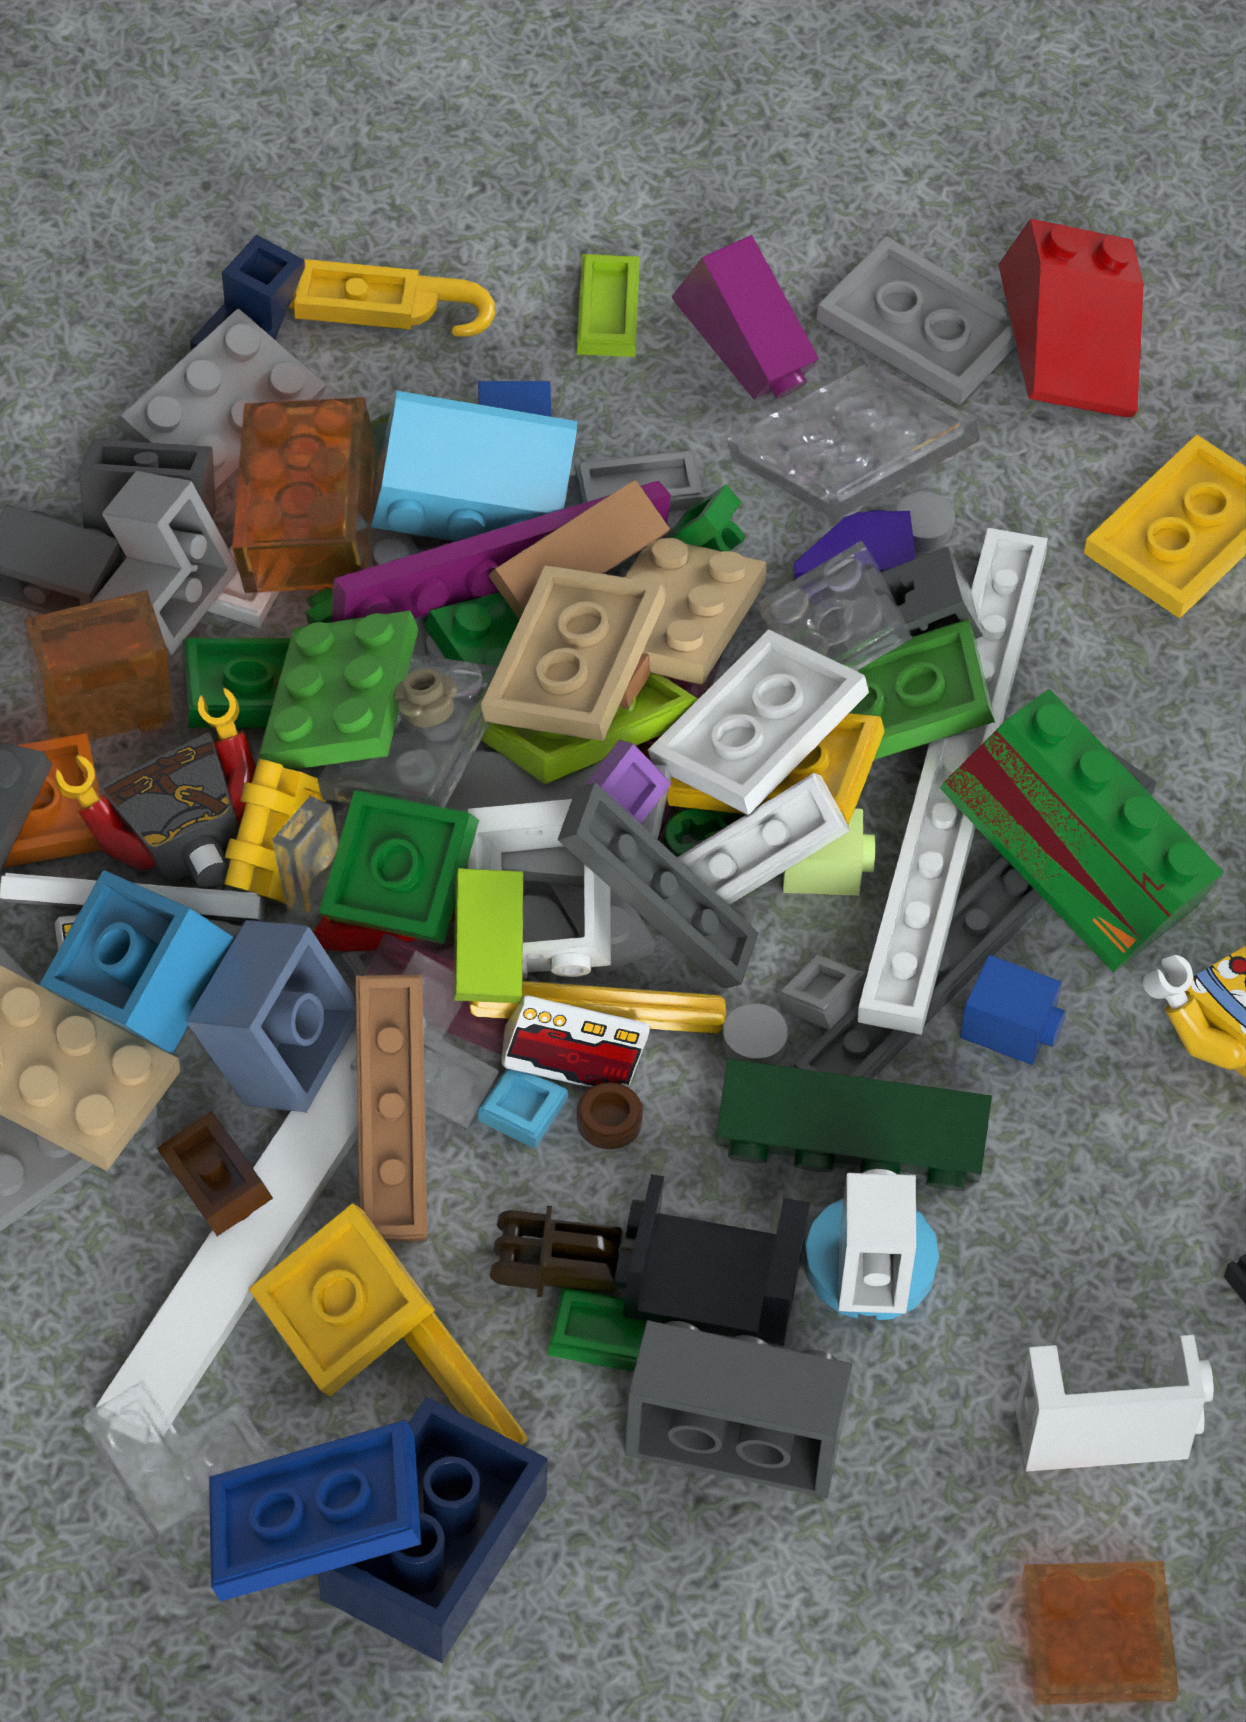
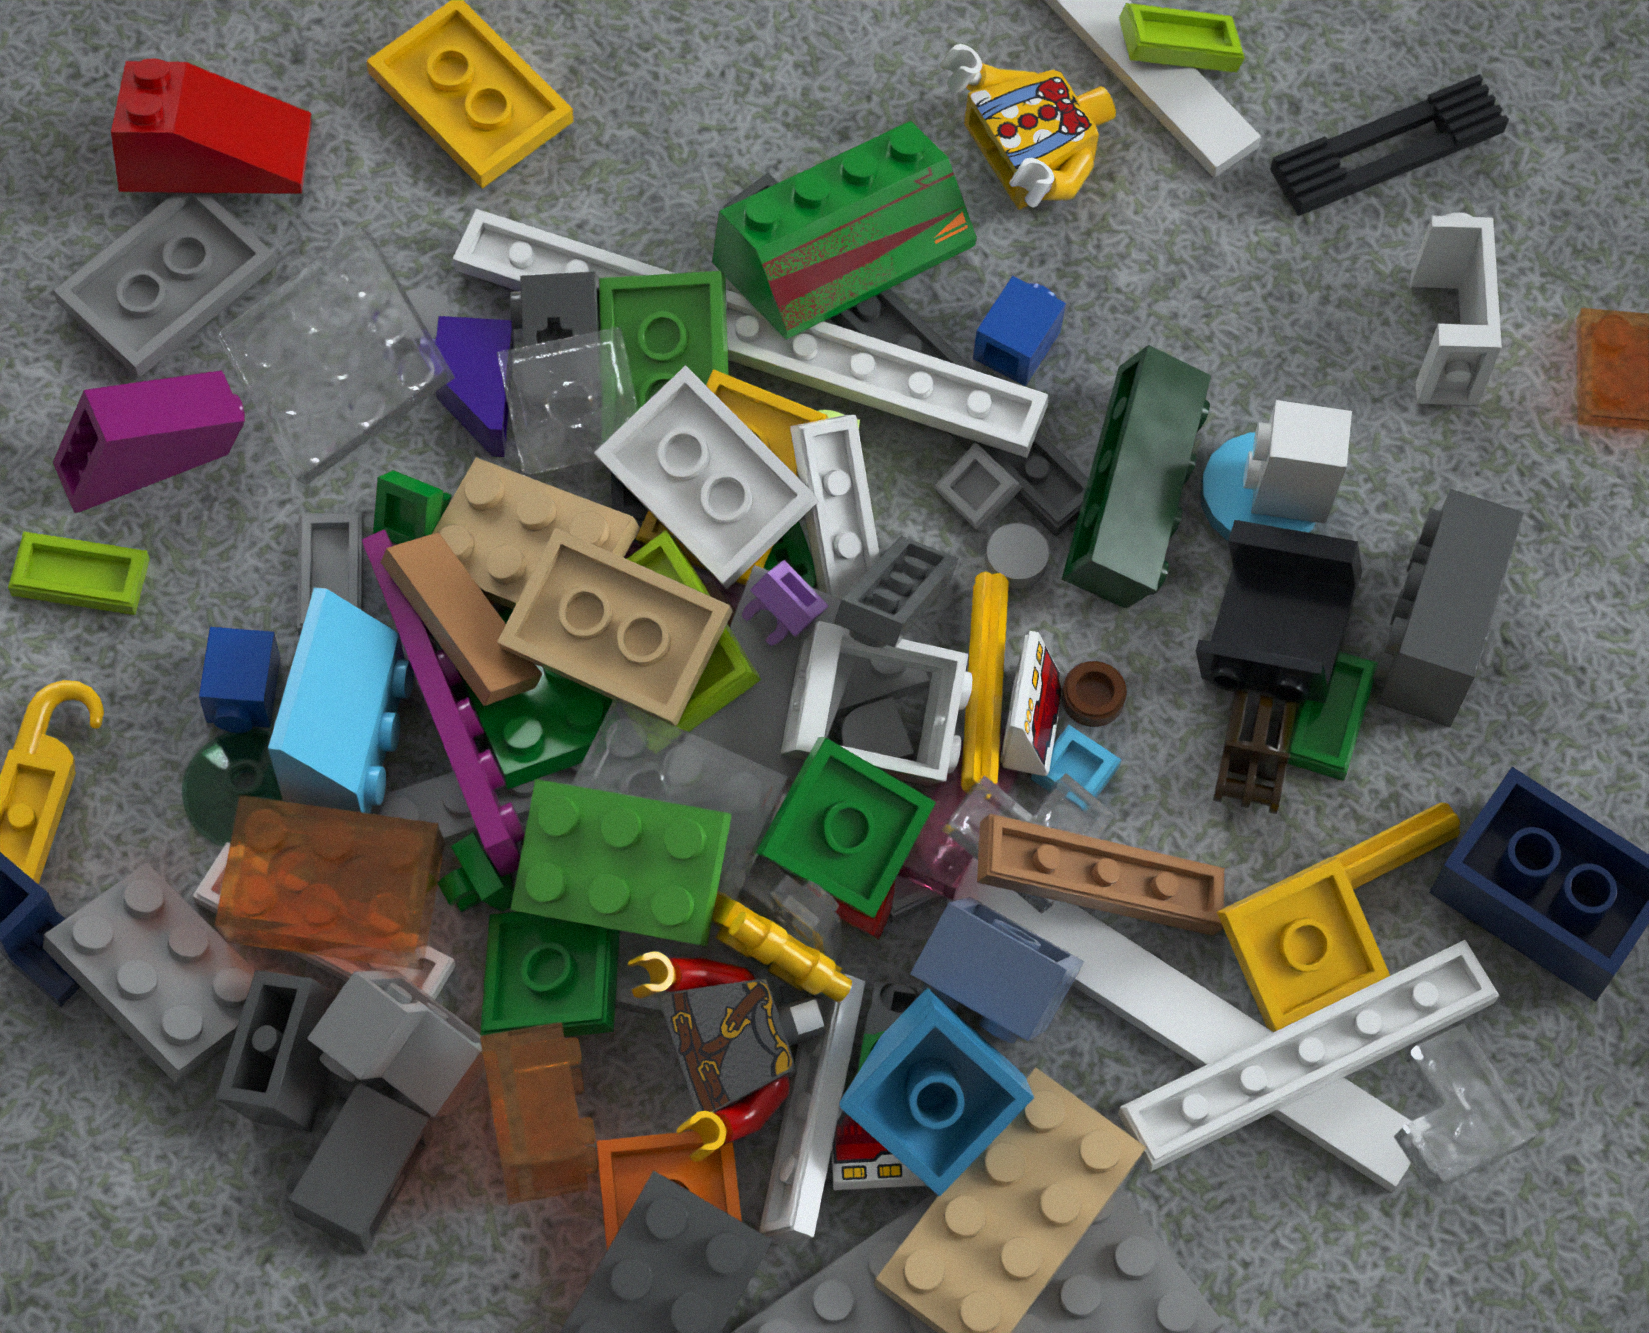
camera: 85 degrees left, 10 degrees up
(214, 1173) = (1154, 1051): reddish brown plate -> none
(218, 1303) = (1307, 1055): none -> white tile
(313, 1510) = (1560, 975): blue tile -> none
(426, 697) = (673, 780): dark tan plate -> none
(488, 936) = (947, 748): lime tile -> none

